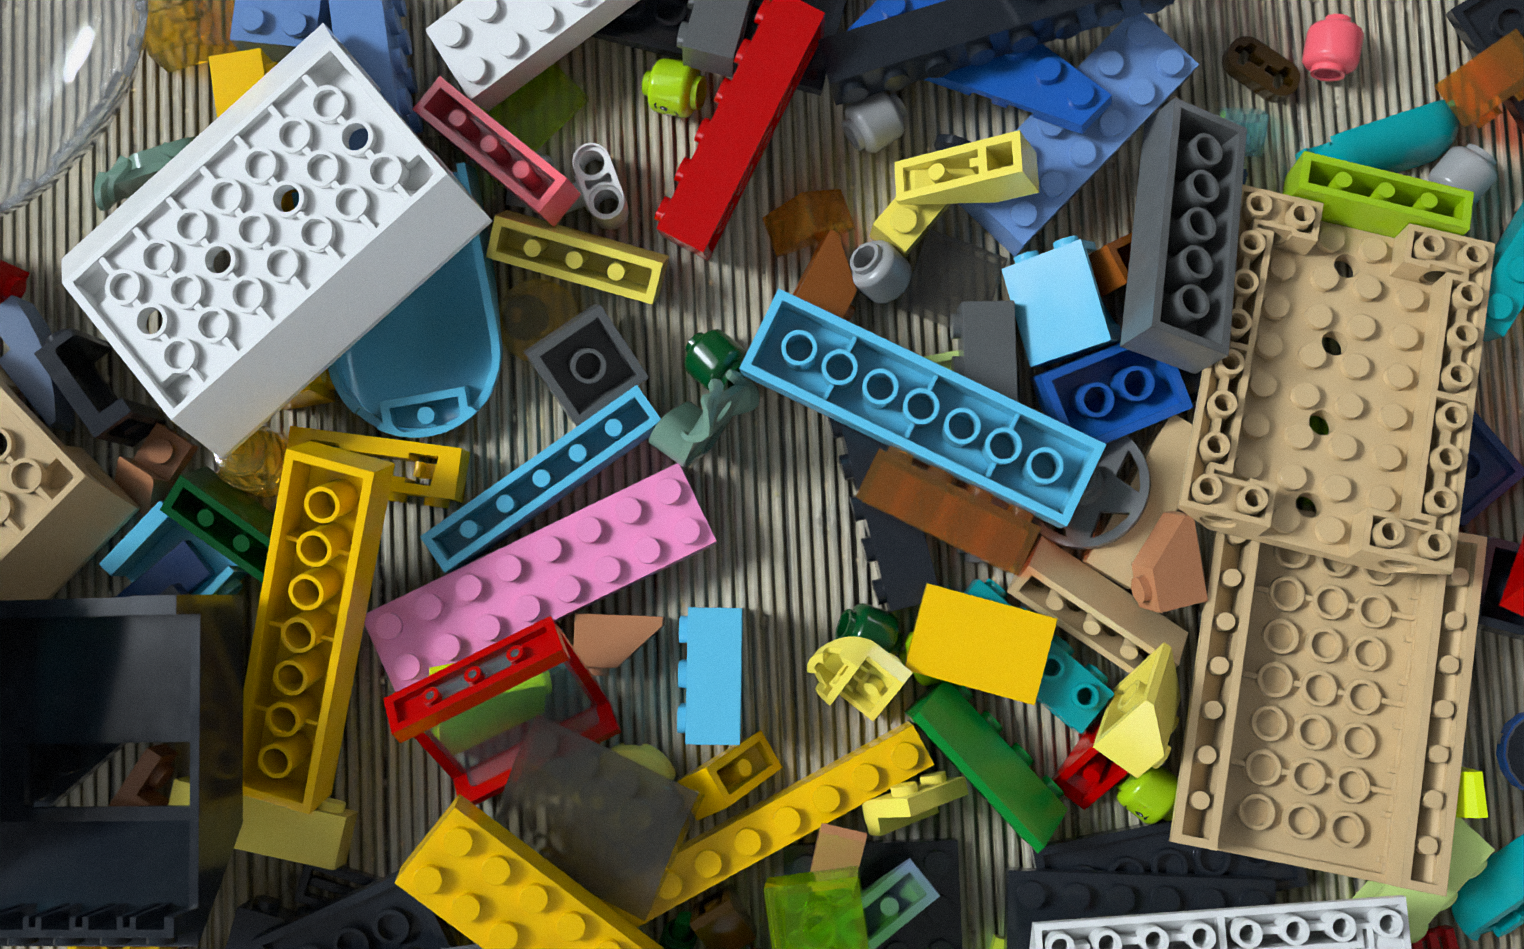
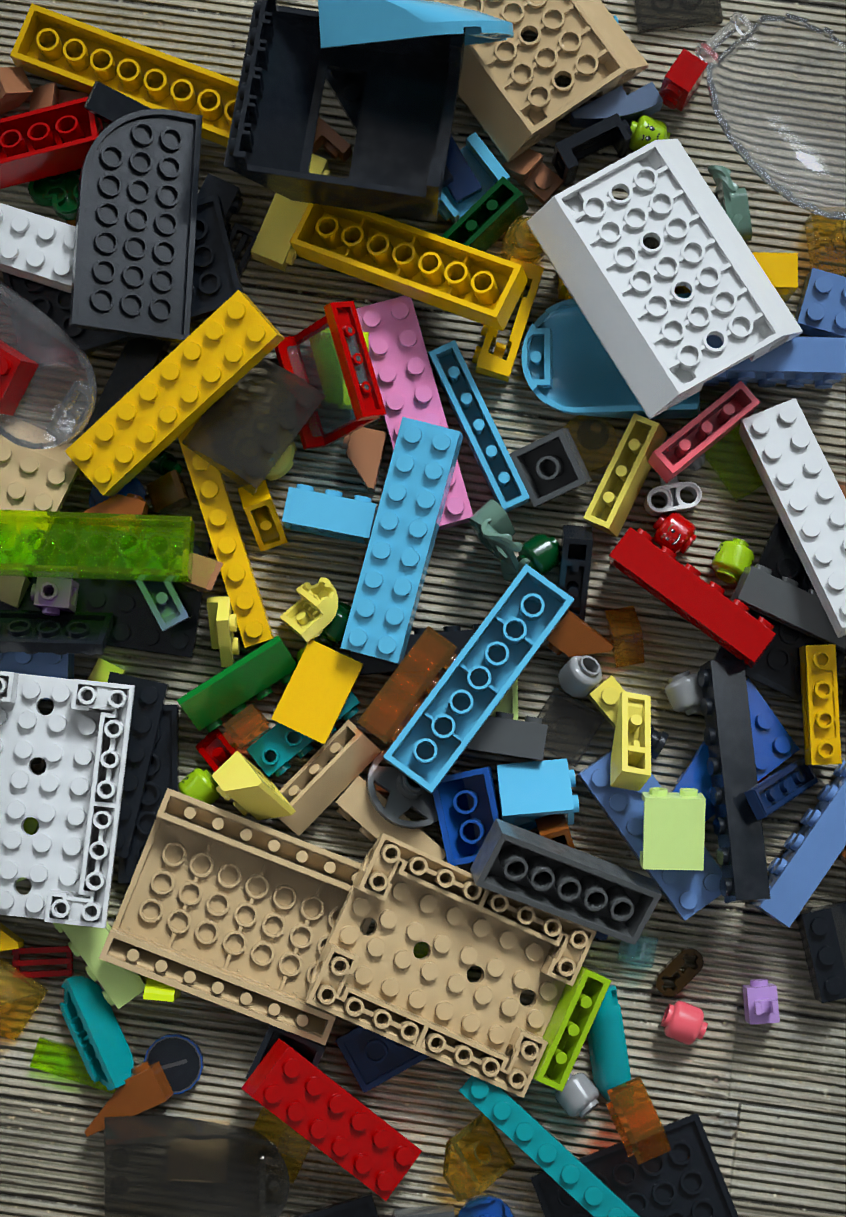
camera: 100 degrees right, 0 degrees up
(62, 311) = (646, 131): none -> lime head
(649, 174) = (674, 532): none -> red head
(718, 305) = (575, 565): none -> black slope
(736, 559) = (402, 540): none -> medium azure brick
(1050, 738) = (246, 727): none -> clear orange brick
(1085, 91) = (673, 829): none -> yellowish green panel
(1169, 566) = (343, 826): nougat slope -> none

